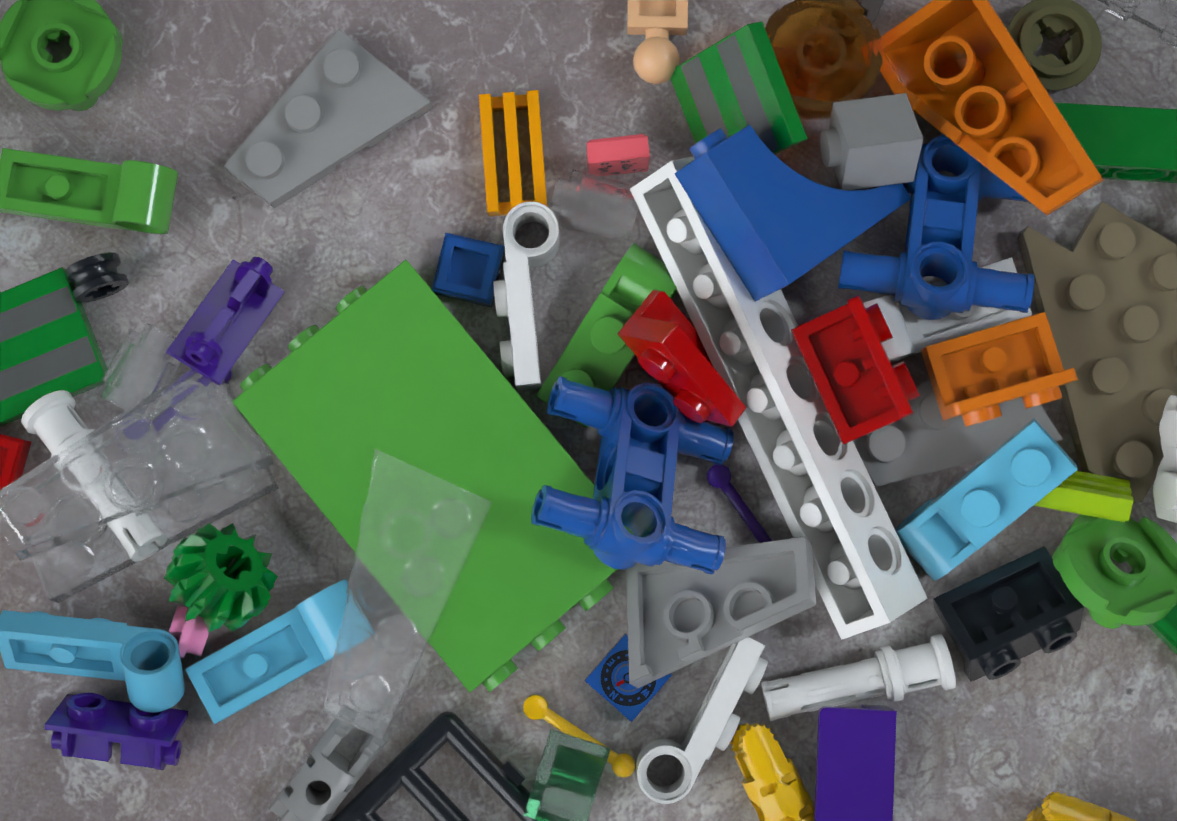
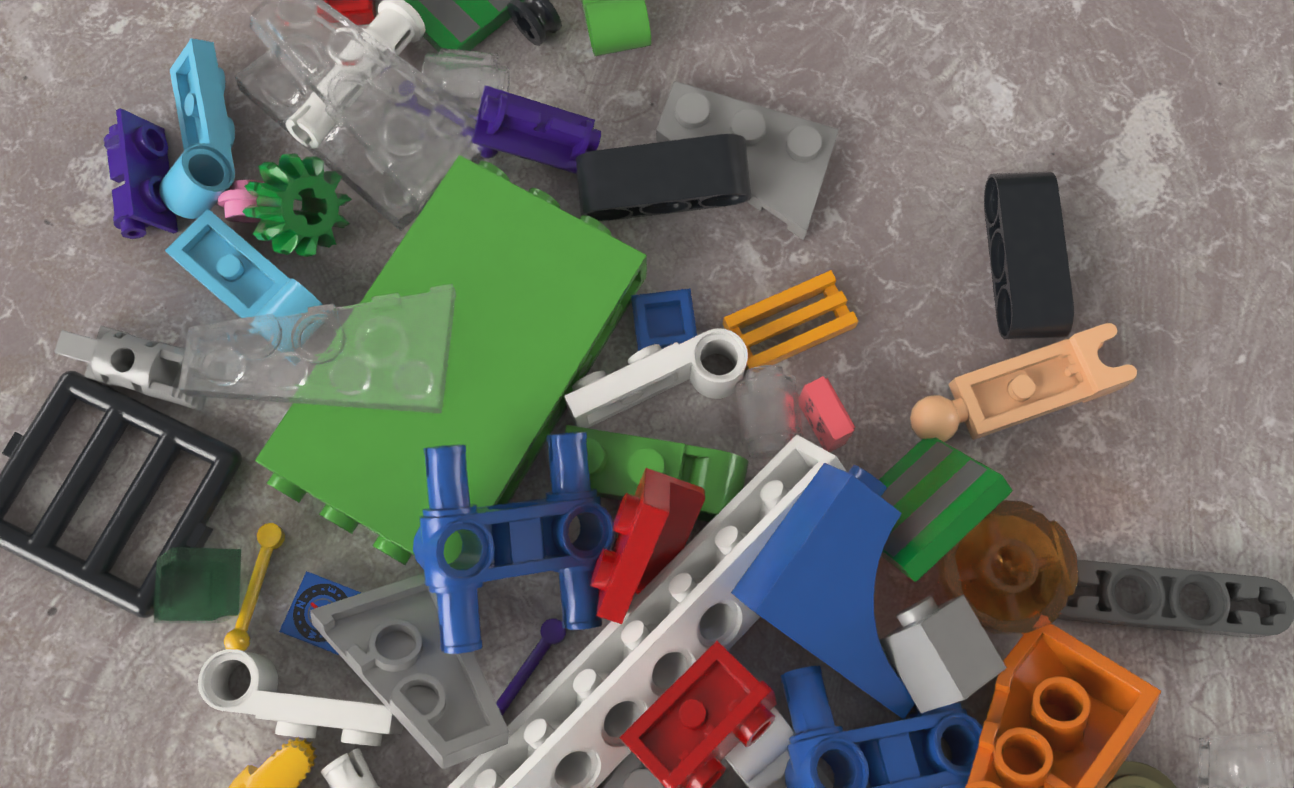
camera: 70 degrees right, 10 degrees down
(328, 215) = (663, 177): none -> black beam

